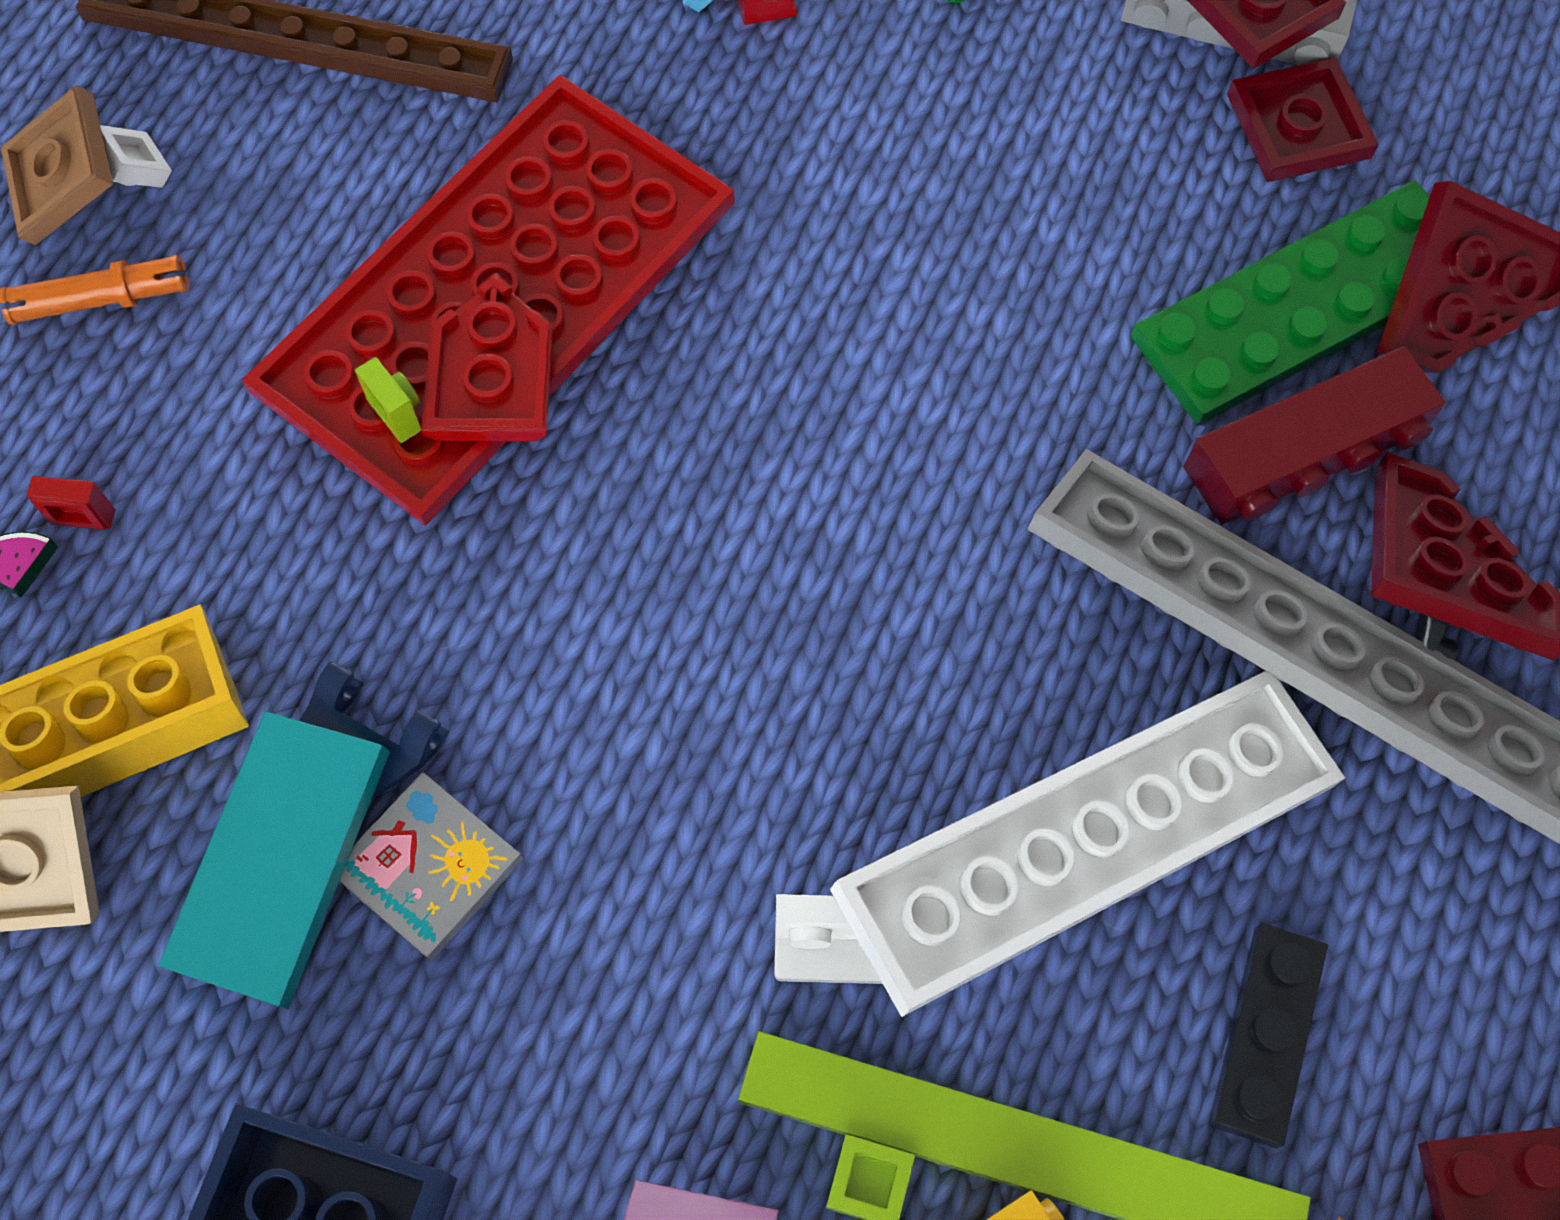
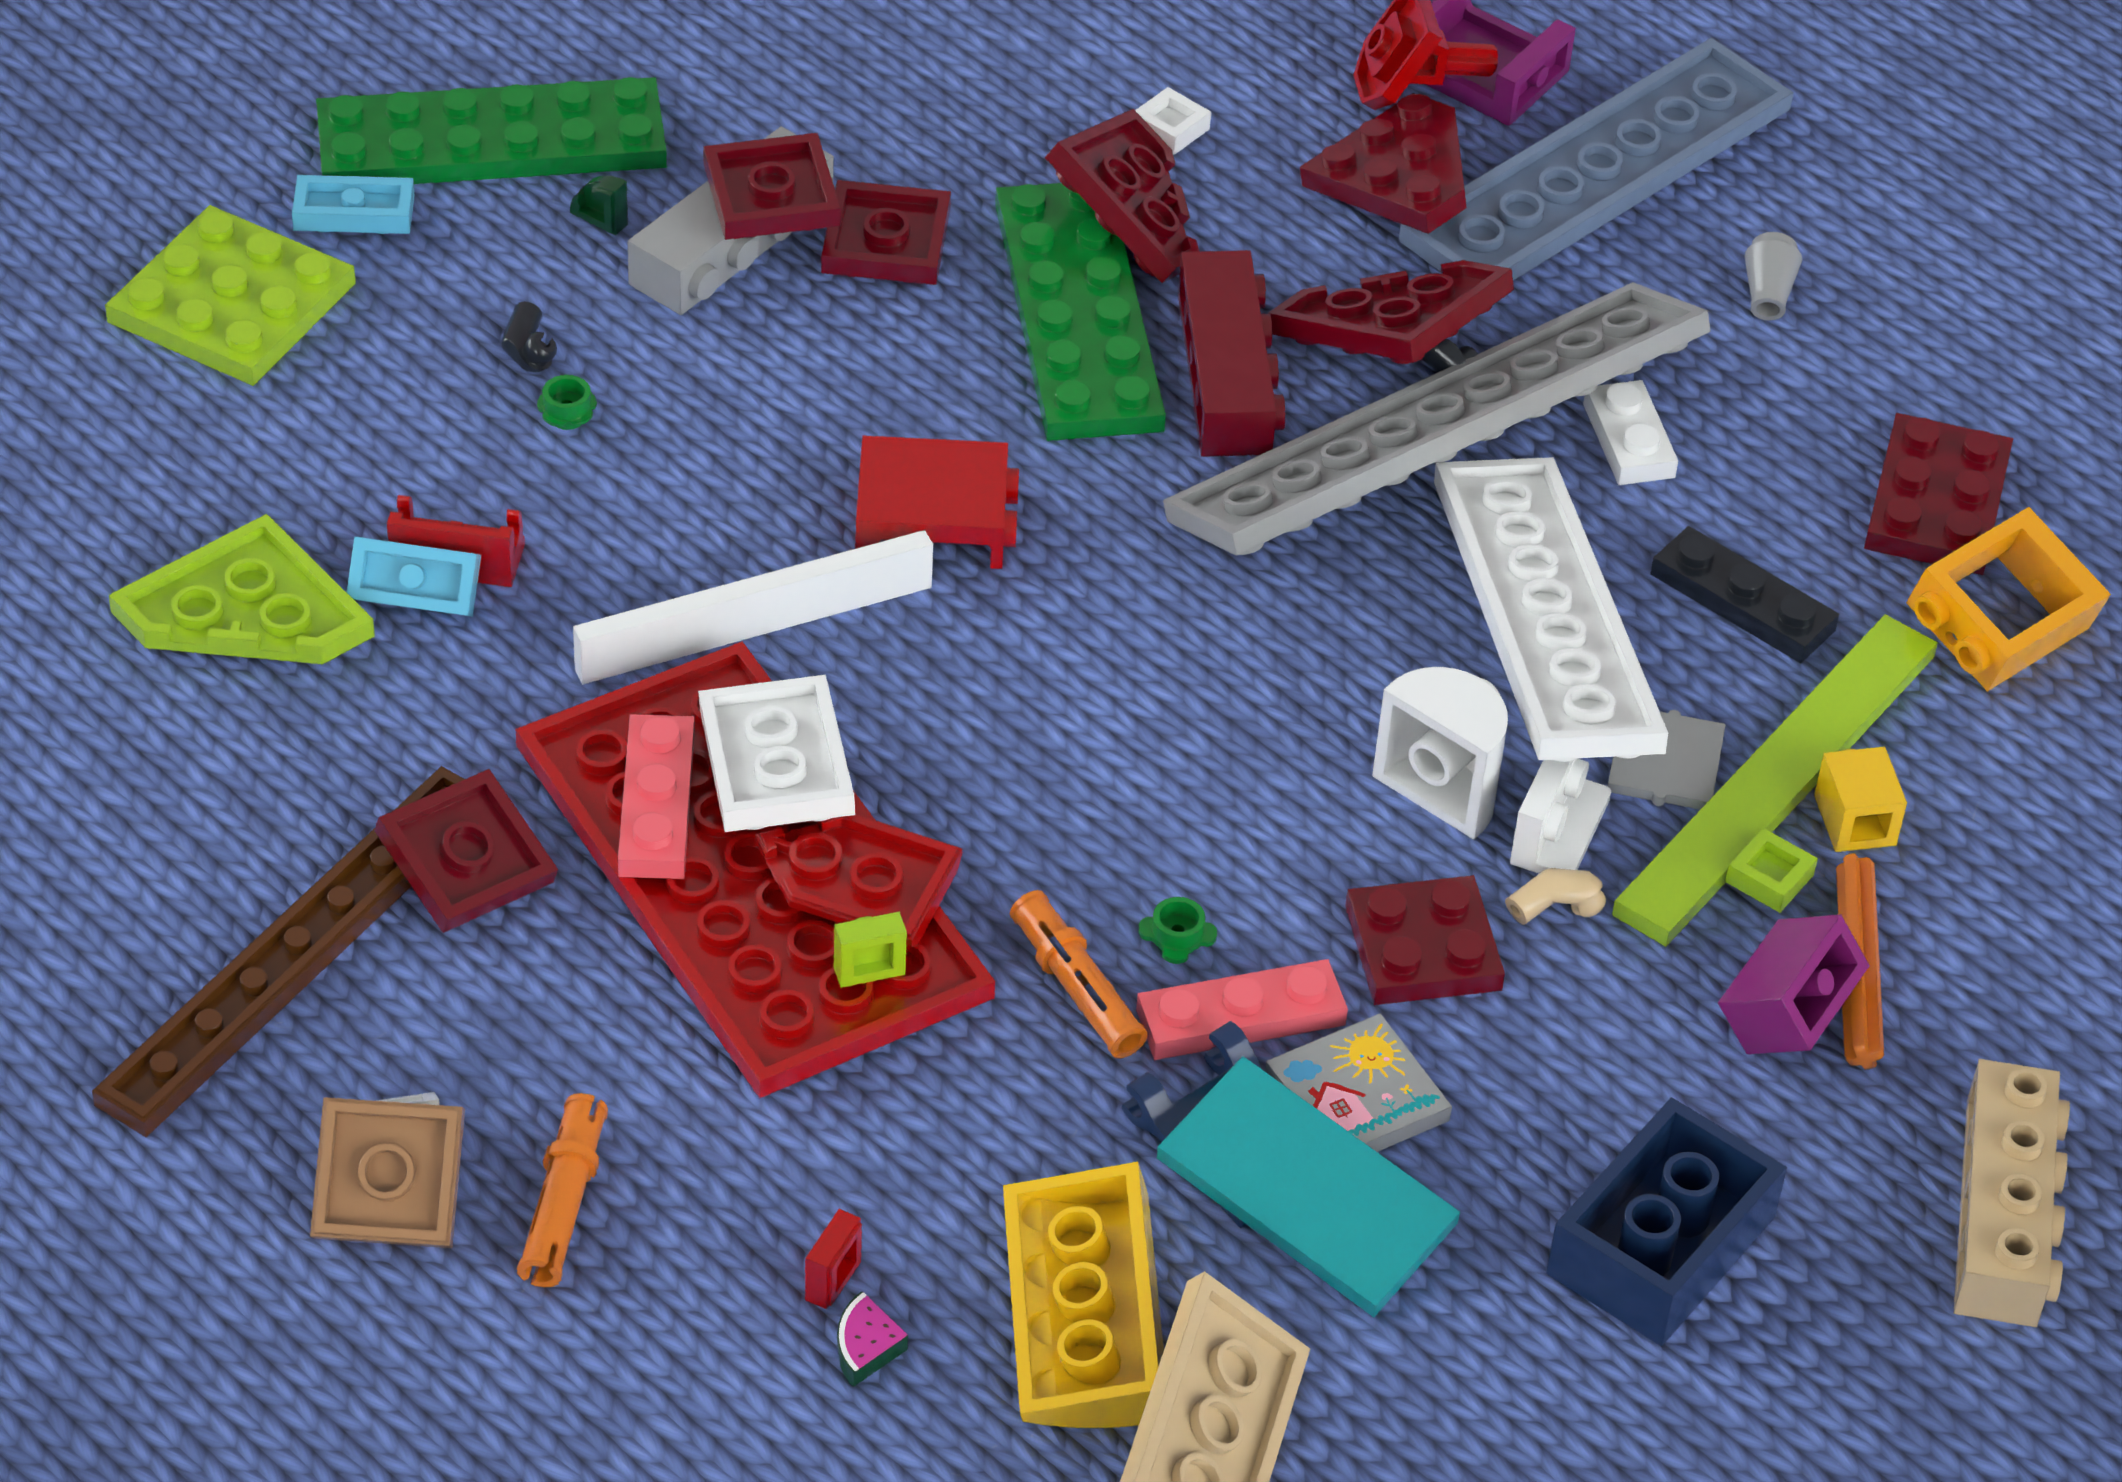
camera: 70 degrees left, 20 degrees down
(411, 90) = (466, 850): none -> dark red plate
(479, 570) = (1040, 923): none -> orange pin
(491, 732) = (1259, 1003): none -> coral plate
(517, 191) = (656, 796): none -> coral plate
(558, 627) = (1178, 929): none -> green plate
(581, 250) = (776, 753): none -> white plate
(642, 865) = (1424, 940): none -> dark red plate
(753, 972) = (1557, 885): none -> tan arm
(787, 187) = (752, 607): none -> white tile
(864, 801) = (1443, 744): none -> white brick
(982, 268) = (939, 487): none -> red panel
(1000, 1027) = (1680, 776): none -> light grey piece
(1440, 846) = (1631, 433): none -> white plate

